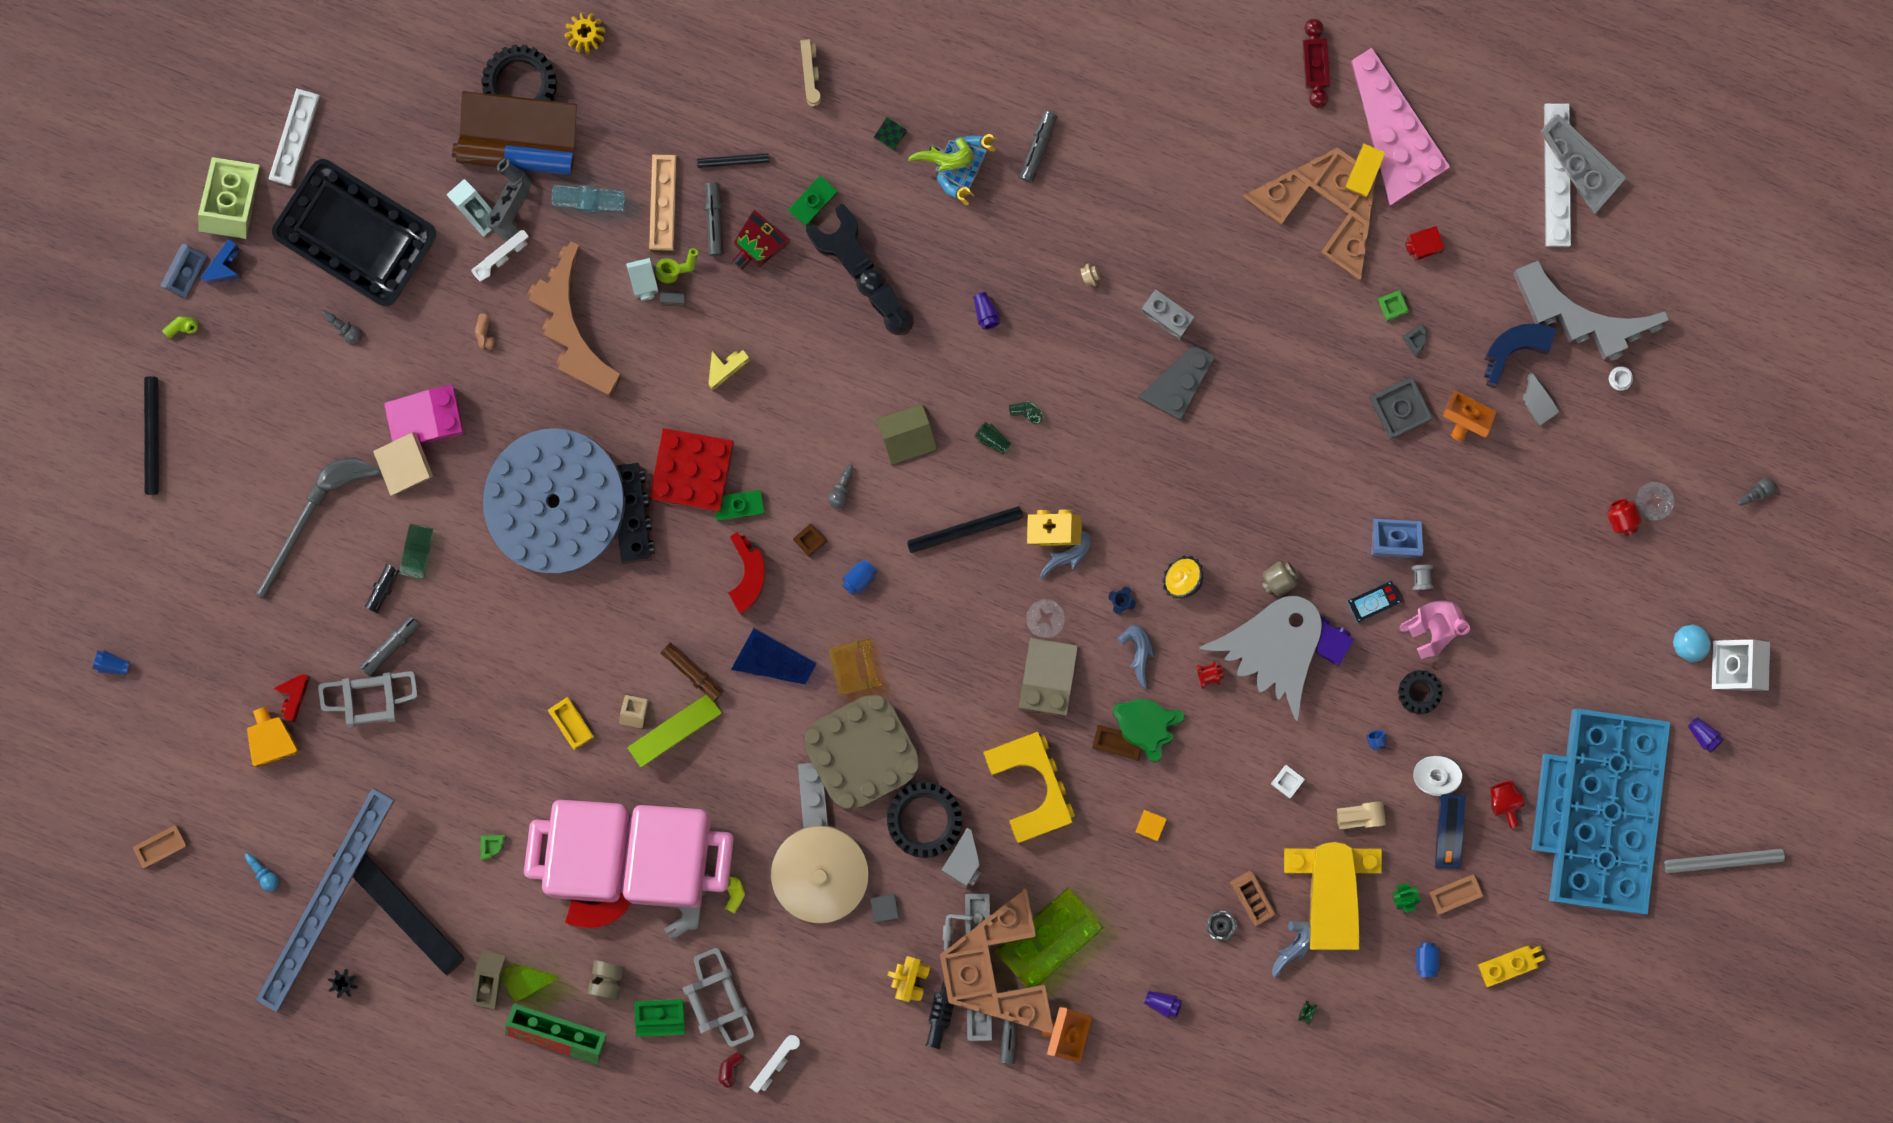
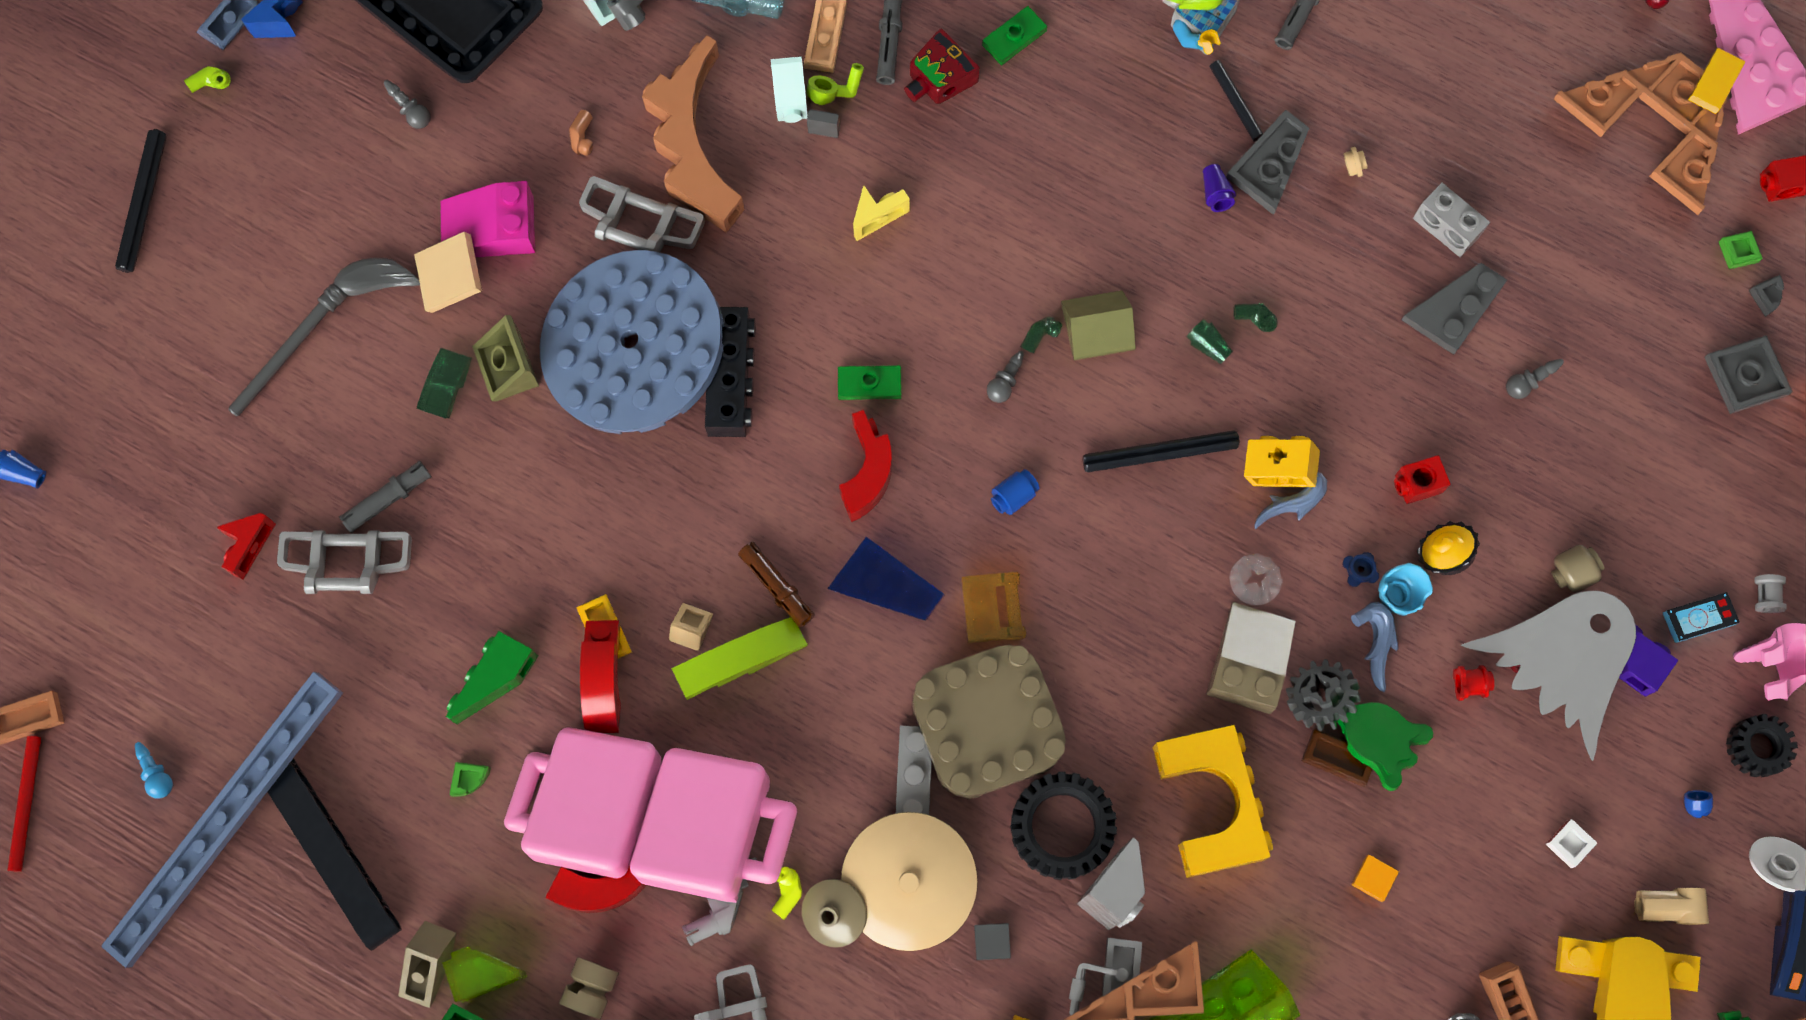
camera: 10 degrees right, 10 degrees down
(174, 908) = (24, 804): none -> red bar
(269, 739) = (201, 595): light orange torso -> none
(337, 987) = (219, 947): black gear -> none
(382, 588) = (390, 423): black pin -> none
(459, 528) = (504, 361): none -> olive slope
(499, 256) = (618, 44): white hinge -> none
(500, 765) = (497, 673): none -> green slope
(526, 381) = (608, 222): none -> light grey bar
(575, 759) = (600, 676): none -> red arch
(691, 470) = (815, 330): red plate -> none
(776, 897) = (846, 906): none -> dark tan dish
(809, 540) = (955, 438): reddish brown tile -> none
(861, 447) = (1038, 330): none -> clear green arm
(869, 280) = (1060, 107): black piece -> none
(994, 233) = (1236, 100): none -> black bar
(1025, 282) = (1270, 160): none -> dark grey wing
(1091, 698) = (1339, 691): none -> dark grey gear
(1153, 612) = (1405, 588): none -> medium azure hair
(1168, 519) = (1430, 470): none -> red brick
(1231, 439) = (1520, 385): none -> dark grey bar
(1397, 538) = (1737, 541): medium blue slope -> none

